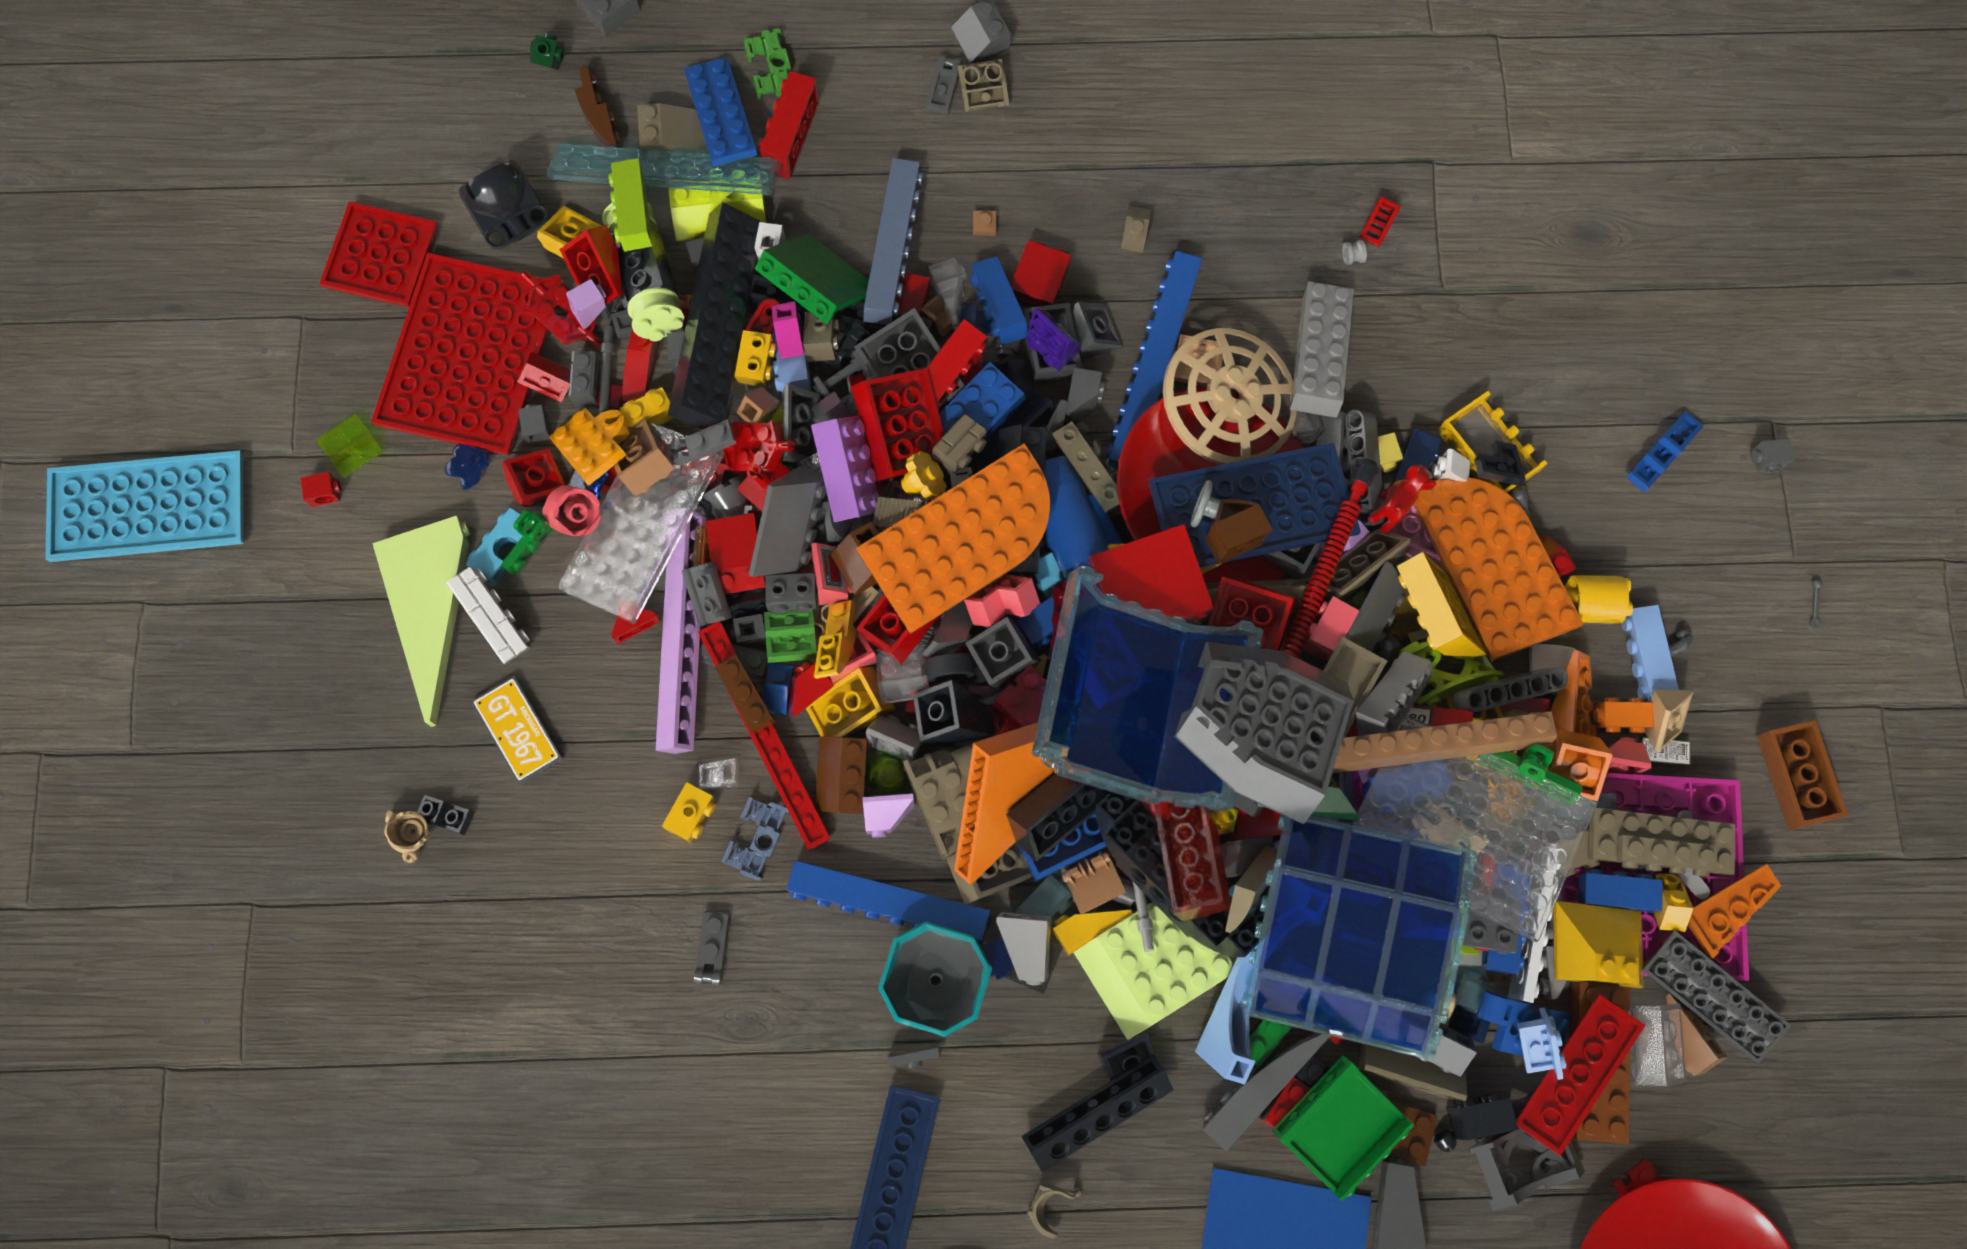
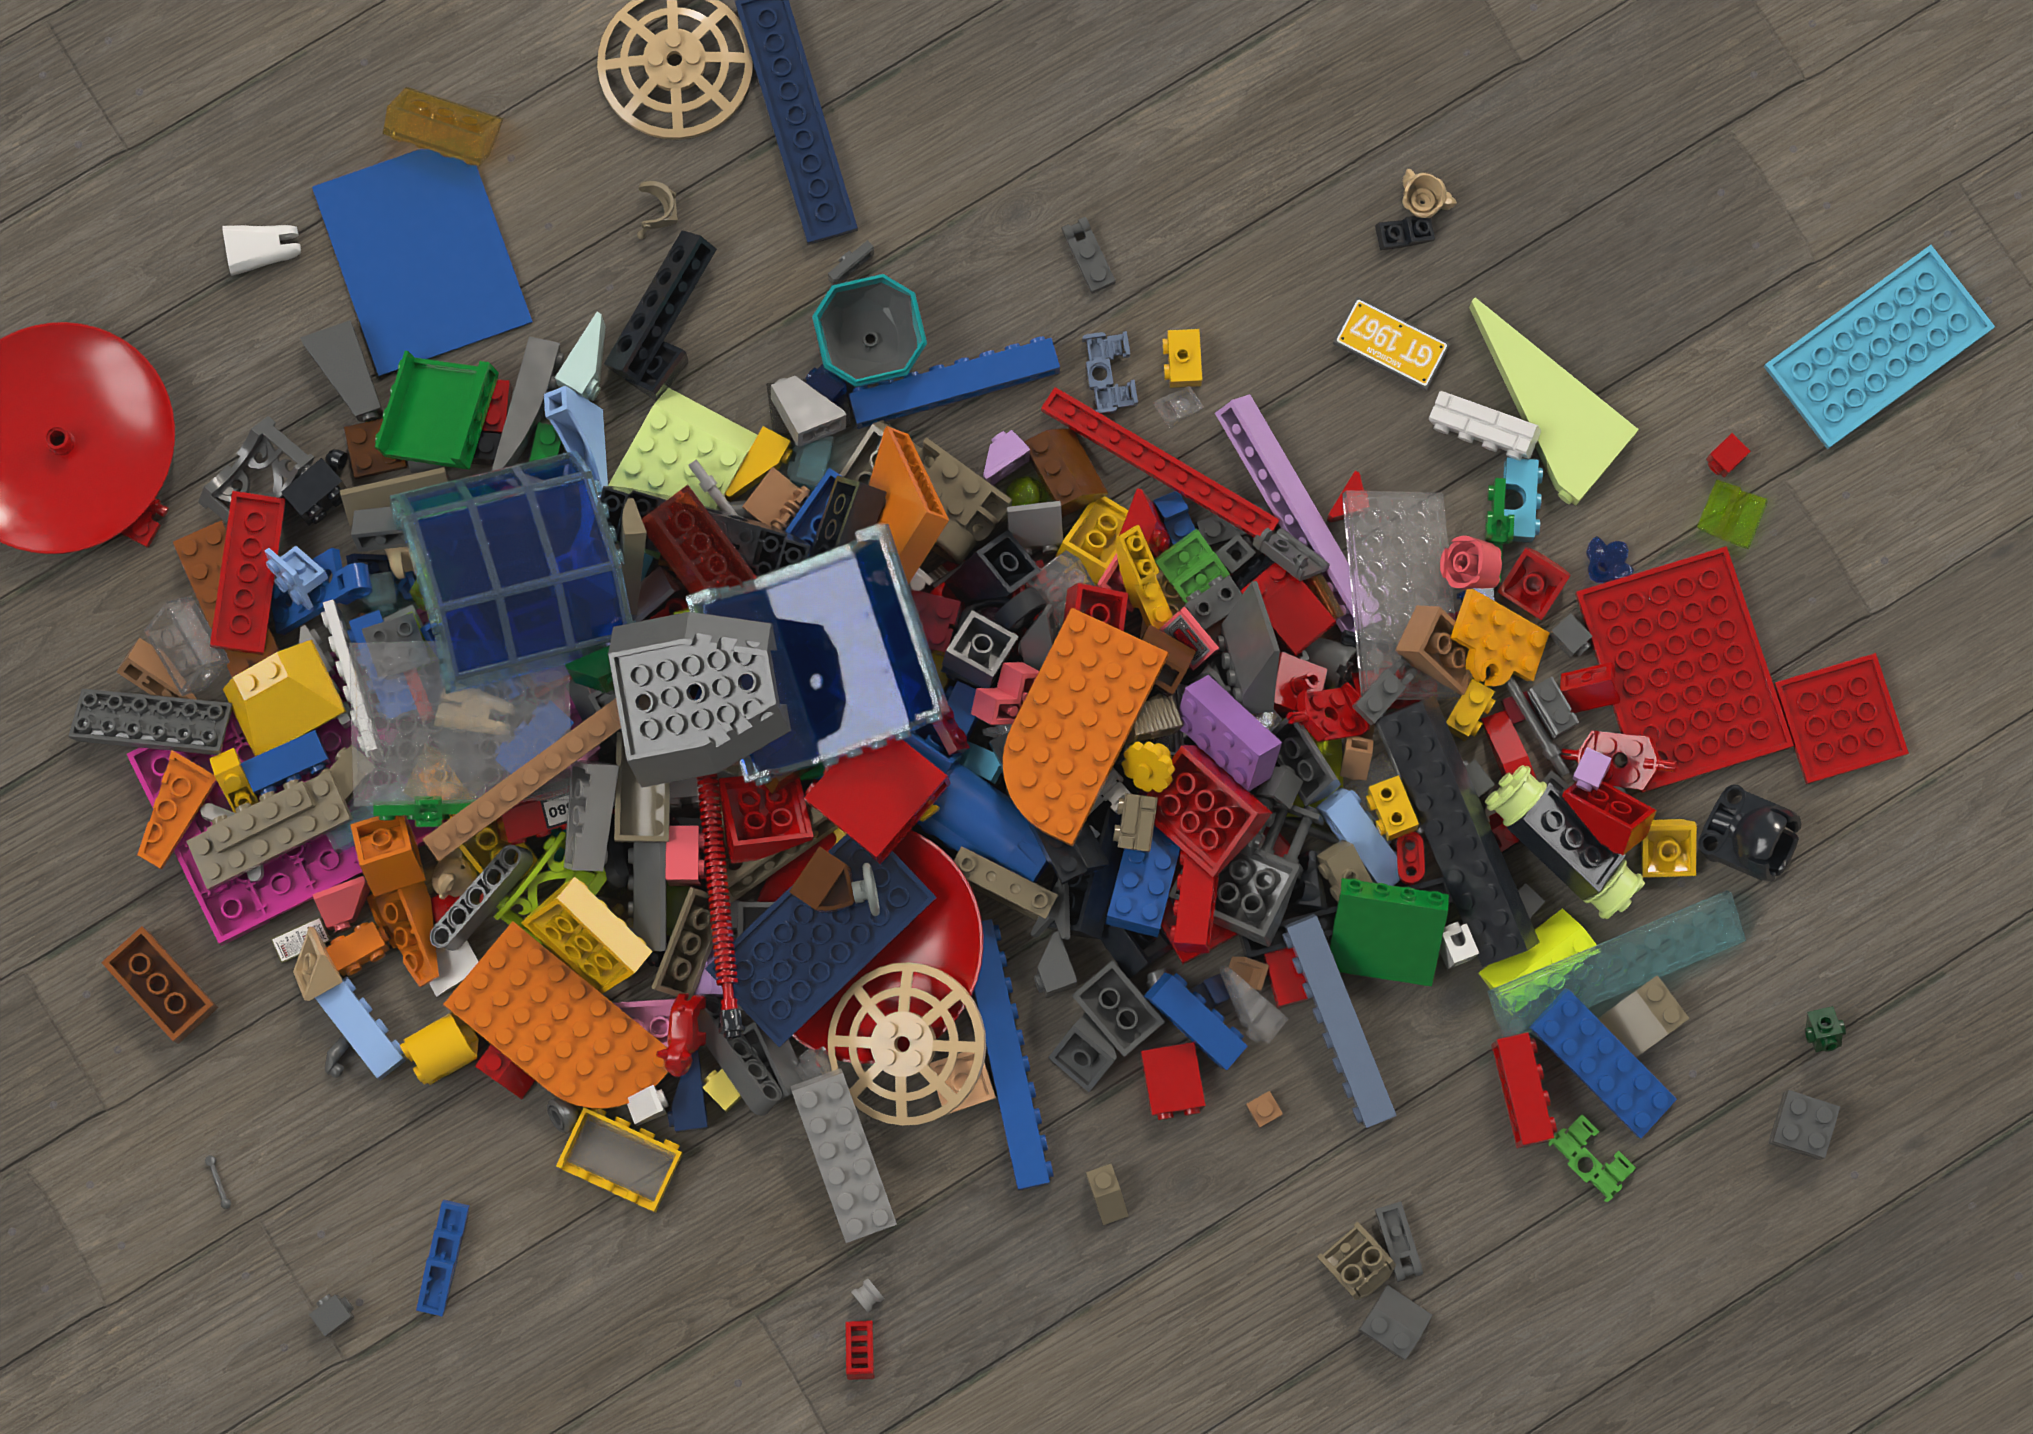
camera: 150 degrees right, 5 degrees up
(595, 112) = (1723, 988): reddish brown slope -> none
(631, 205) = (1612, 889): lime brick -> none
(745, 694) = (1196, 483): reddish brown brick -> none
(788, 330) = (1376, 852): dark pink slope -> none
(1051, 340) = (1113, 995): dark purple slope -> none
(1193, 1094) = (584, 364): none -> light aqua slope
(1502, 466) = (595, 1132): black plate -> none

